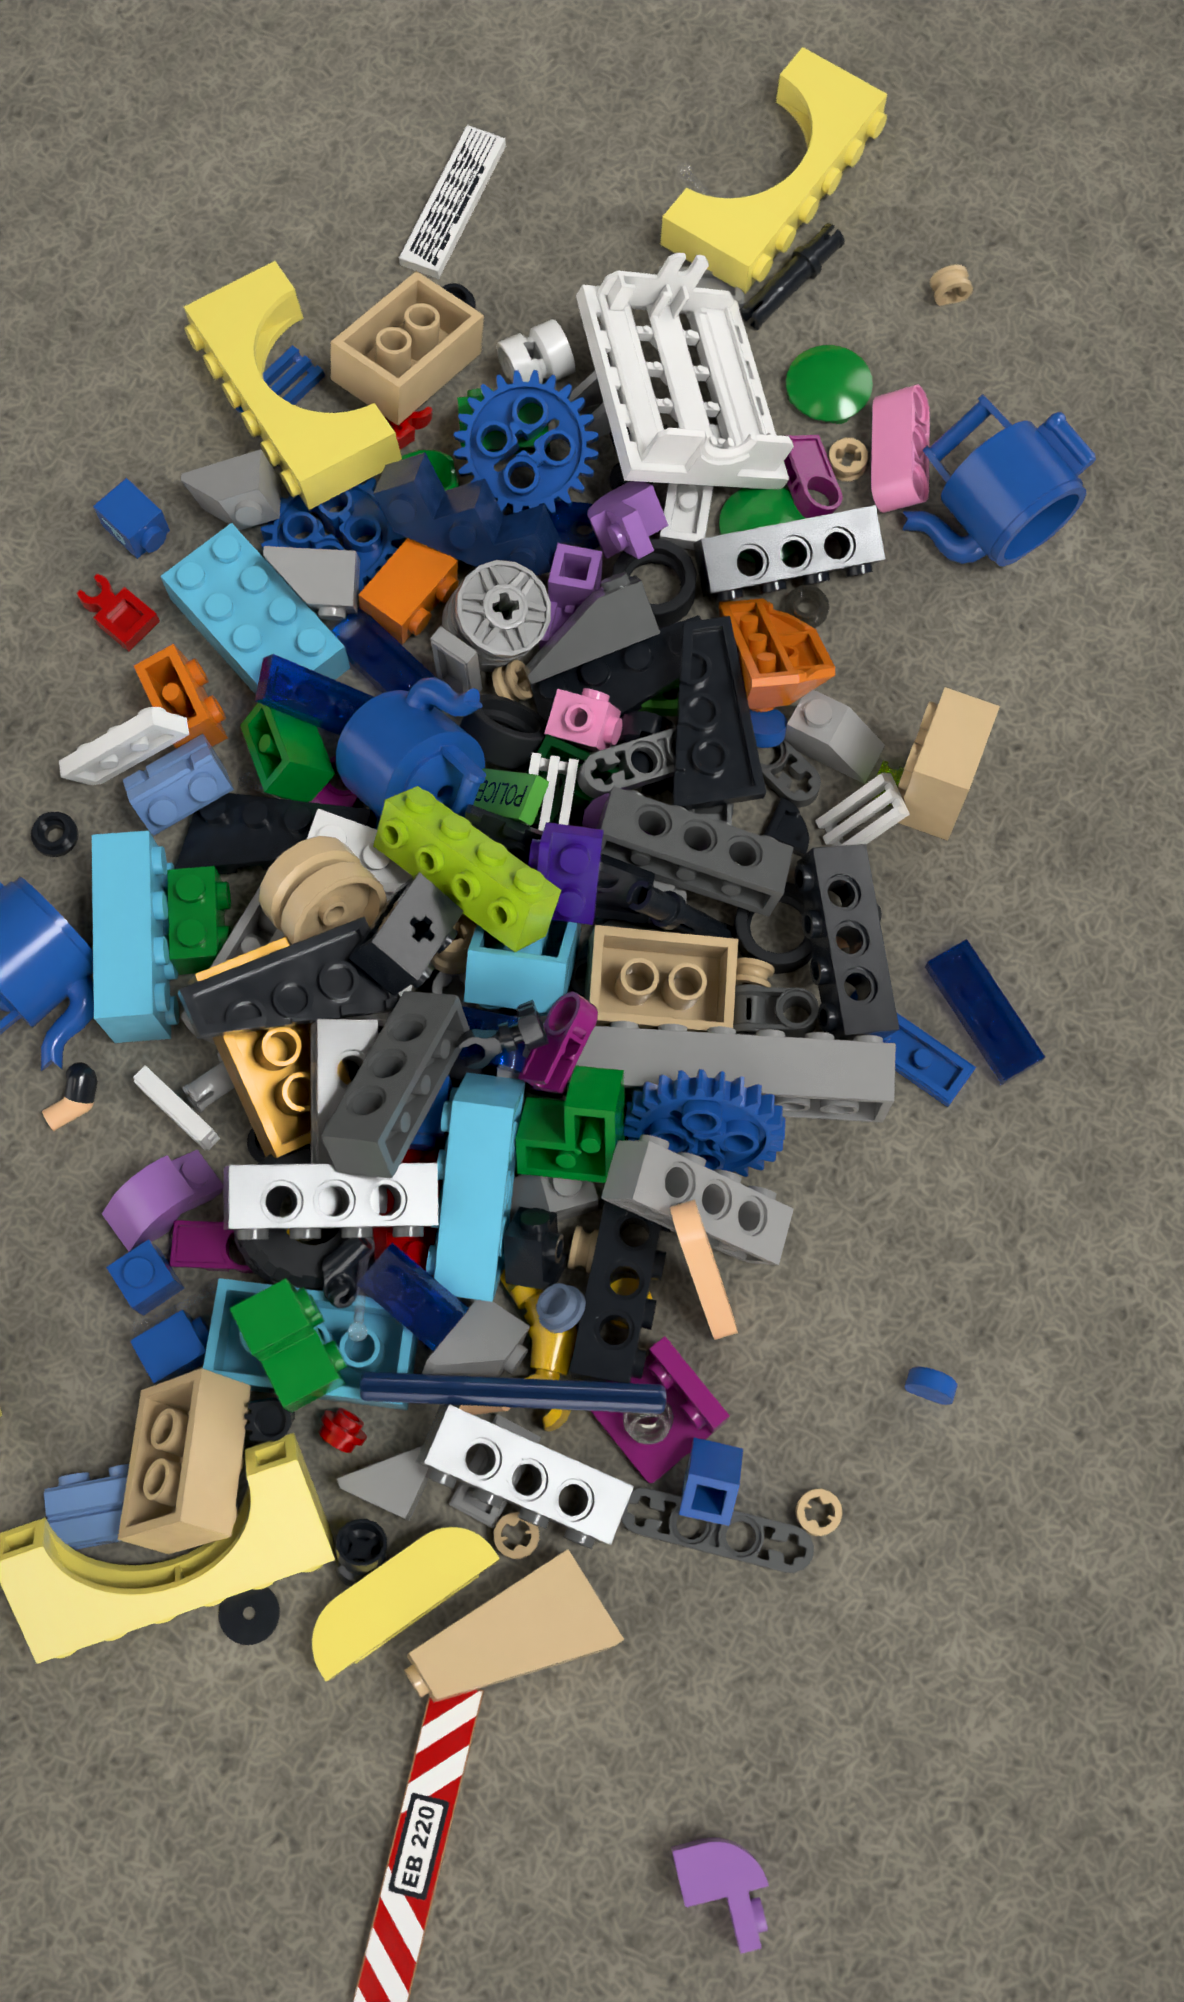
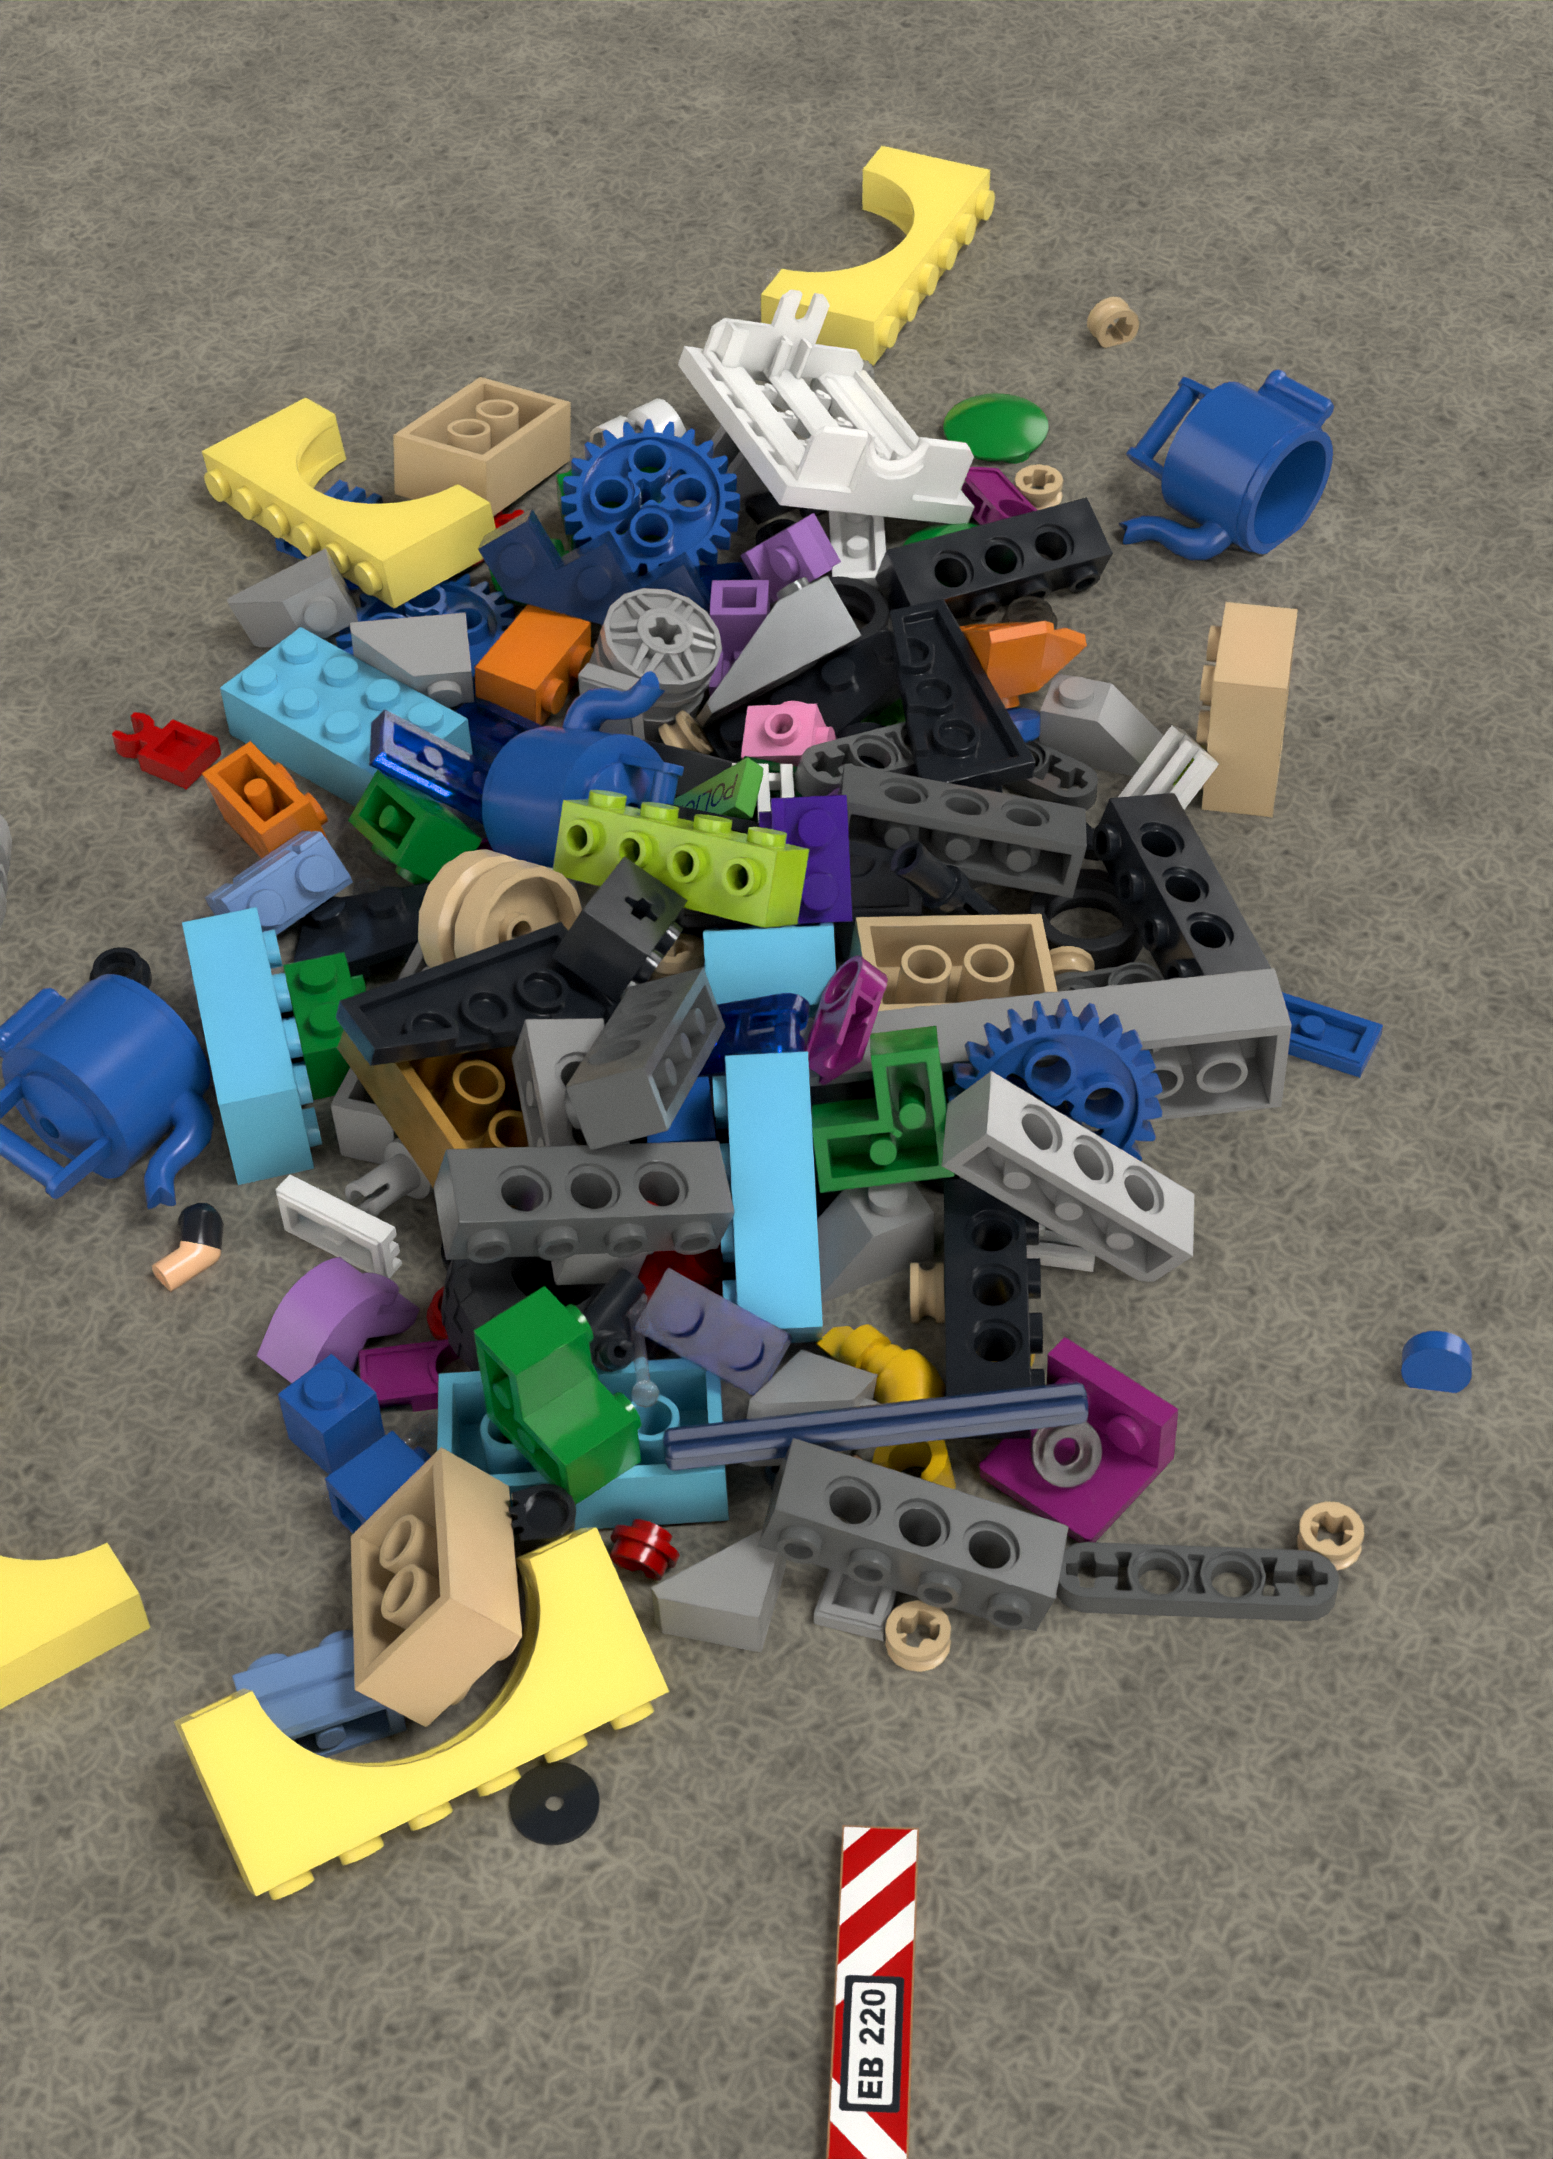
camera: 10 degrees left, 25 degrees down
(124, 746) = (203, 851): white plate -> none
(132, 519) = (170, 656): blue brick -> none
(359, 1541) = (703, 1678): black wheel -> none
(397, 1596) = (772, 1722): light yellow brick -> none
(452, 202) = (508, 328): white tile -> none
(524, 1629) = (950, 1736): tan slope -> none
(527, 1030) = (802, 991): black piece -> none
(534, 1249) = (861, 1280): black brick -> none
(560, 1307) = (915, 1332): sand blue plate -> none
(703, 1269) = (1098, 1243): light nougat beam -> none
(711, 1481) = (1173, 1508): blue brick -> none
(722, 1869) = (1330, 1984): medium lavender brick -> none
(804, 264) = (936, 328): black pin -> none
(898, 438) = (1097, 460): bright pink beam -> none
(984, 1012) = (1375, 967): clear blue plate -> none

